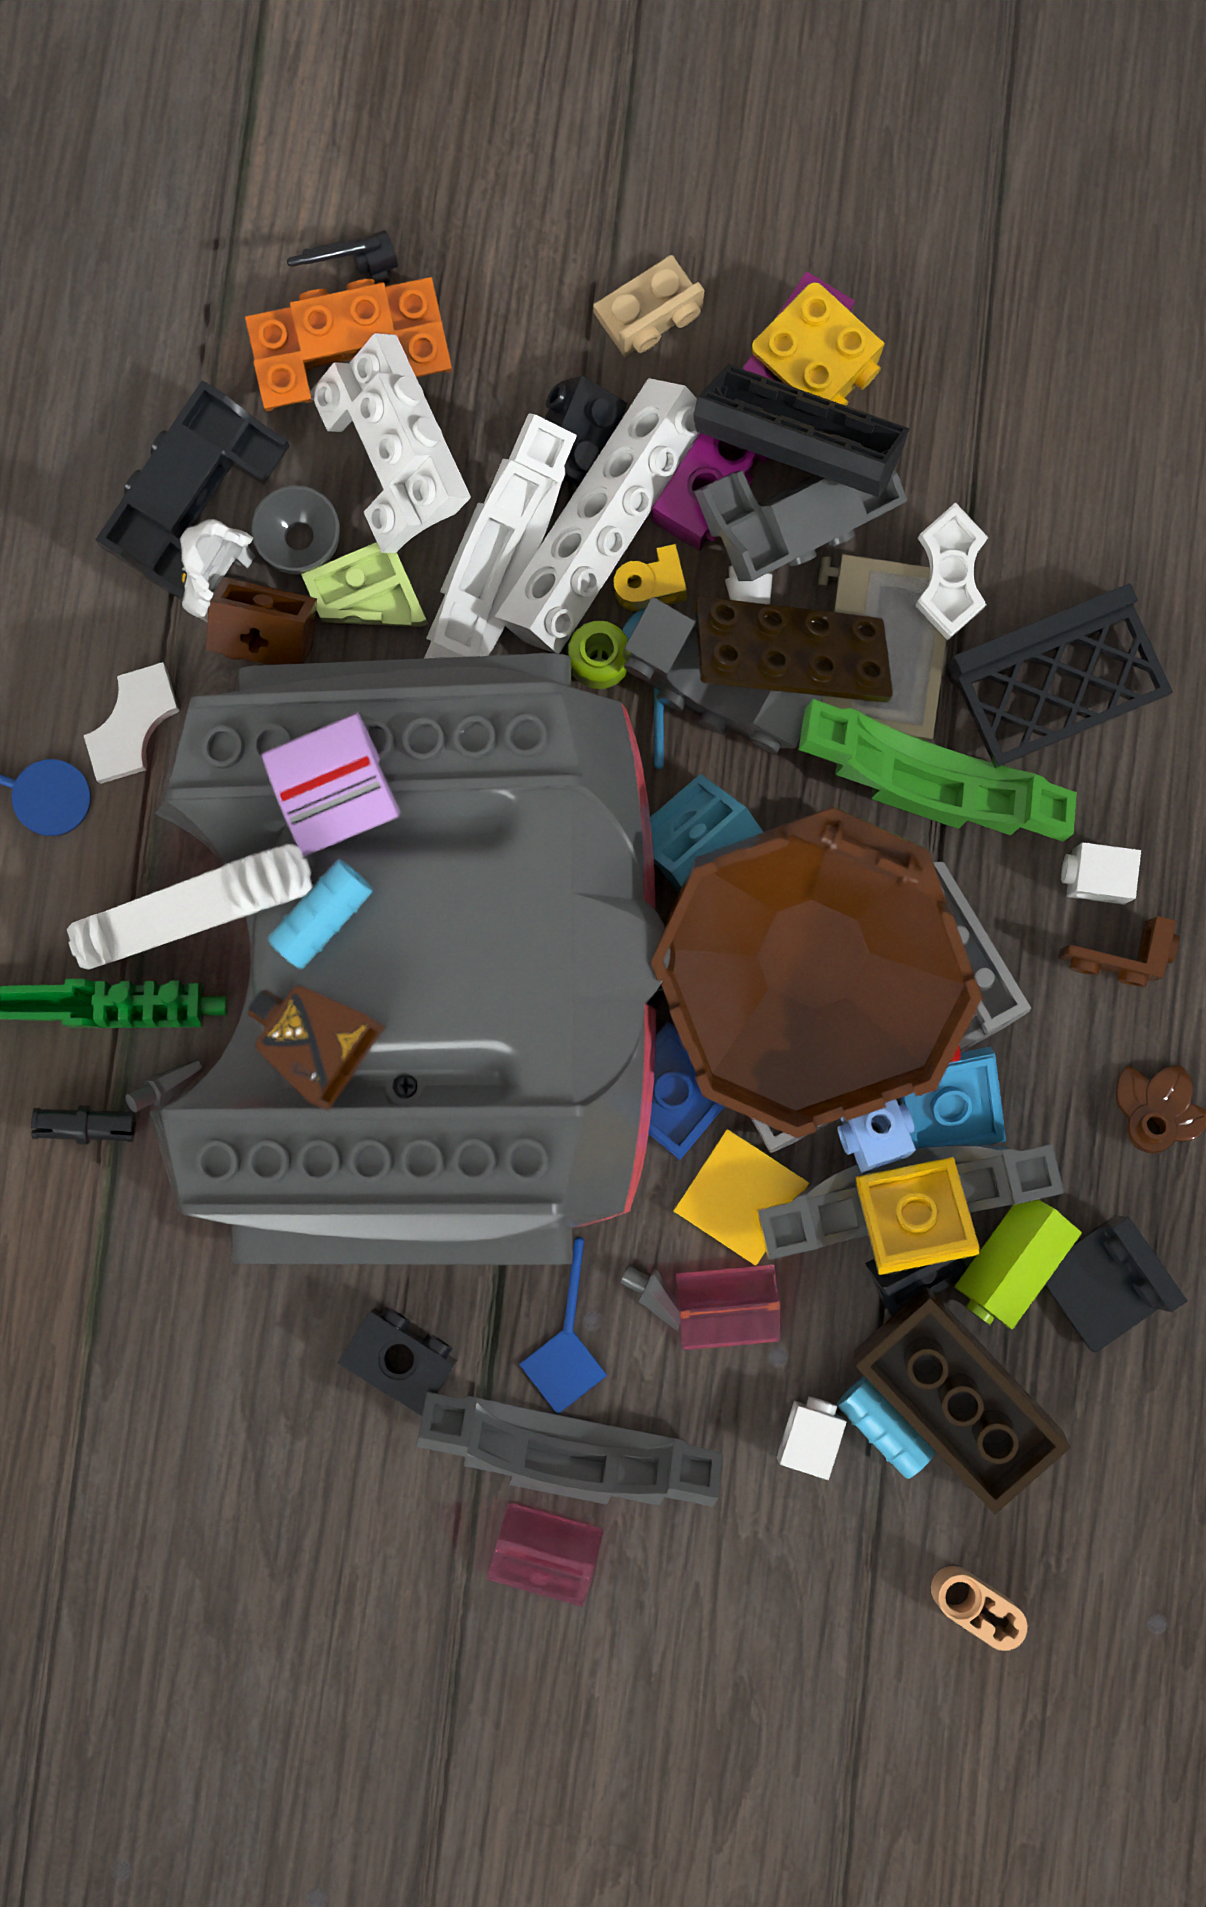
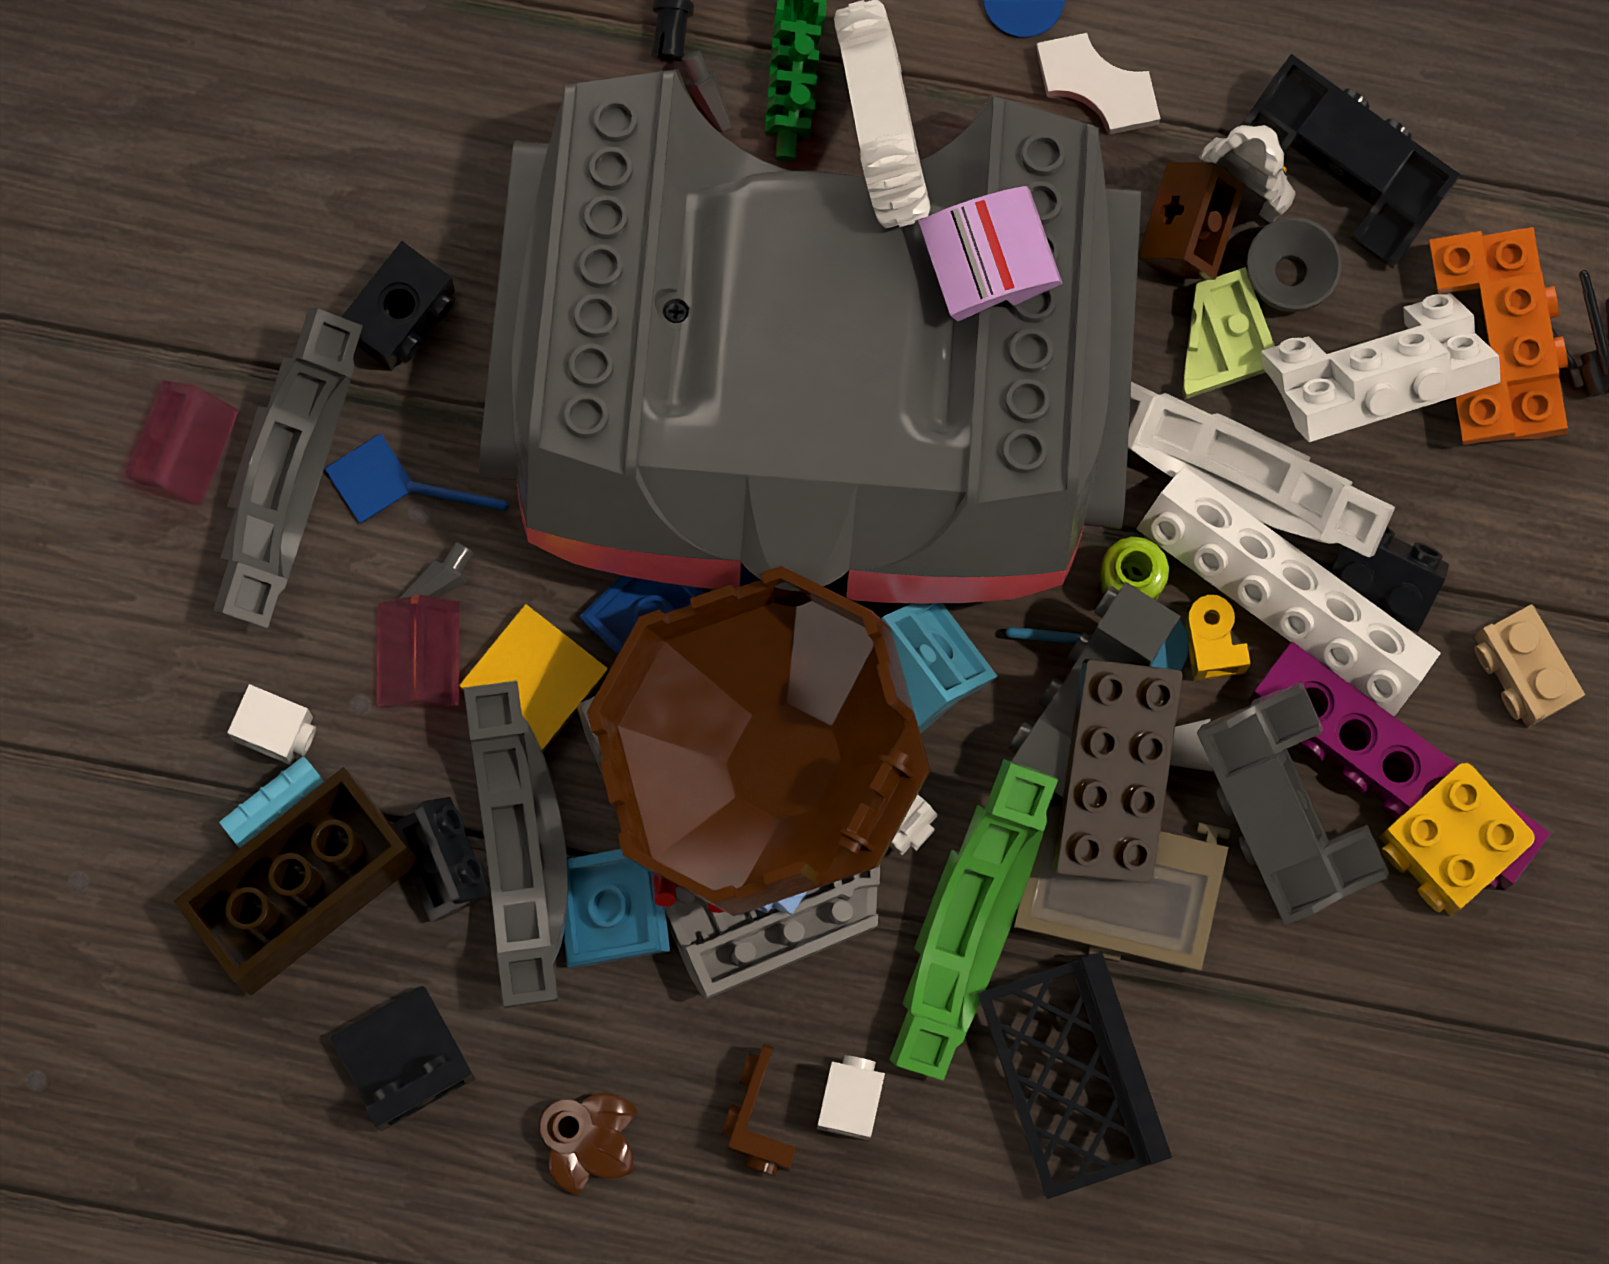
camera: 90 degrees right, 5 degrees down
(313, 1041) = (726, 216): reddish brown torso -> none
(320, 914) = (857, 233): medium azure axle -> none
(800, 429) = (1362, 800): black piece -> none
(883, 1148) = (572, 827): light blue brick -> none
(916, 1215) = (495, 846): yellow tile -> none
(951, 591) = (1175, 959): white tile -> none
(968, 1612) = (56, 884): light nougat beam -> none
(1016, 1262) = (435, 959): lime brick -> none

